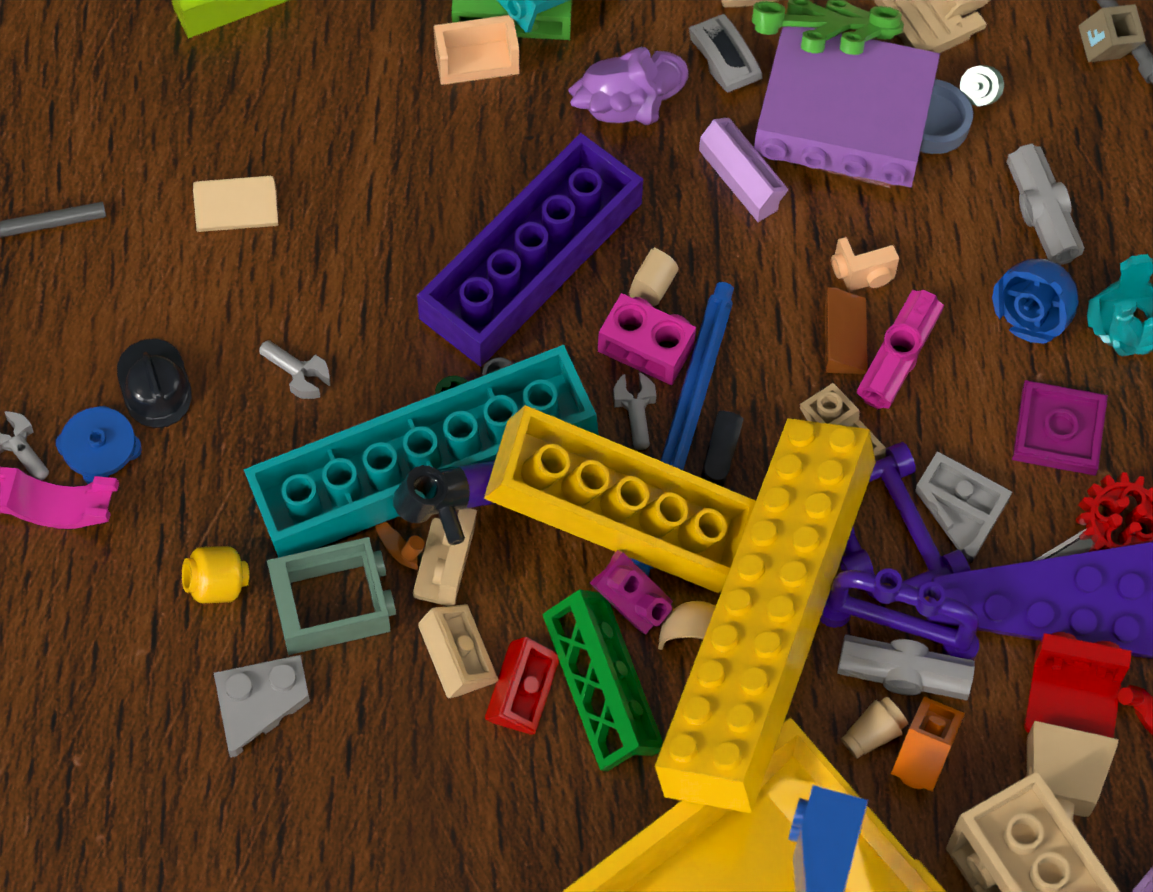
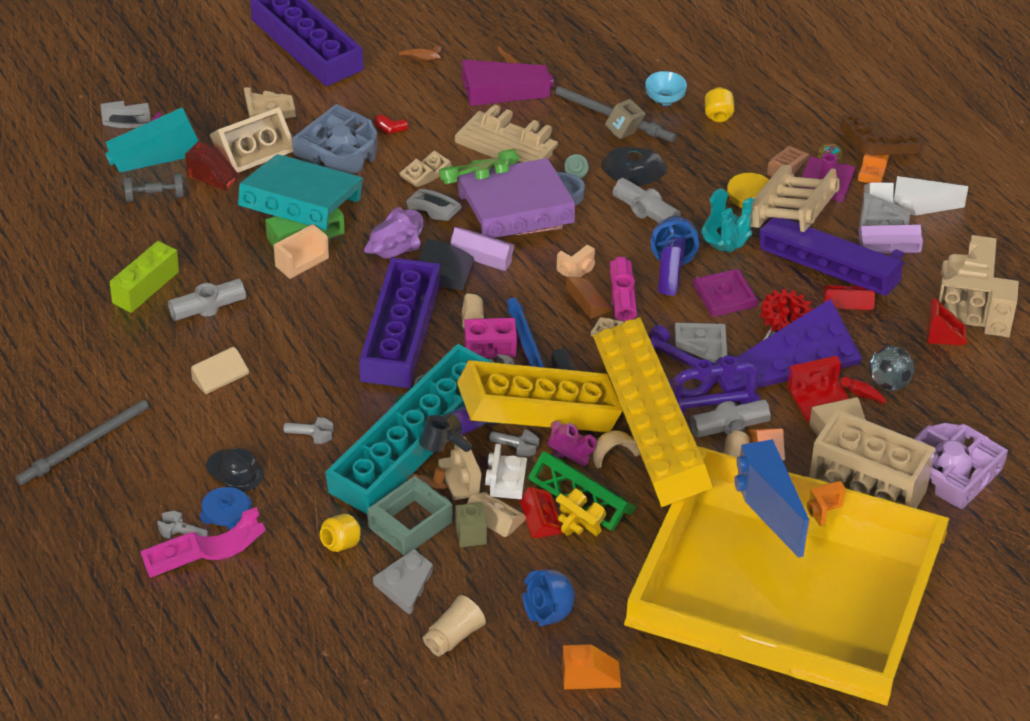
camera: 30 degrees left, 20 degrees down
(262, 822) = (454, 626): none -> tan plant
(273, 68) = (206, 299): none -> light grey piece
(400, 658) = (470, 524): none -> olive brick
(426, 847) = (548, 596): none -> blue cylinder
(511, 594) = (506, 476): none -> white bracket
(568, 558) = (519, 443): none -> light grey bar
(573, 739) = (578, 517): none -> yellow hips
(673, 172) = (454, 263): none -> black slope
(995, 343) = (670, 265): none -> dark purple brick
(1084, 142) = (645, 170): none -> black piece

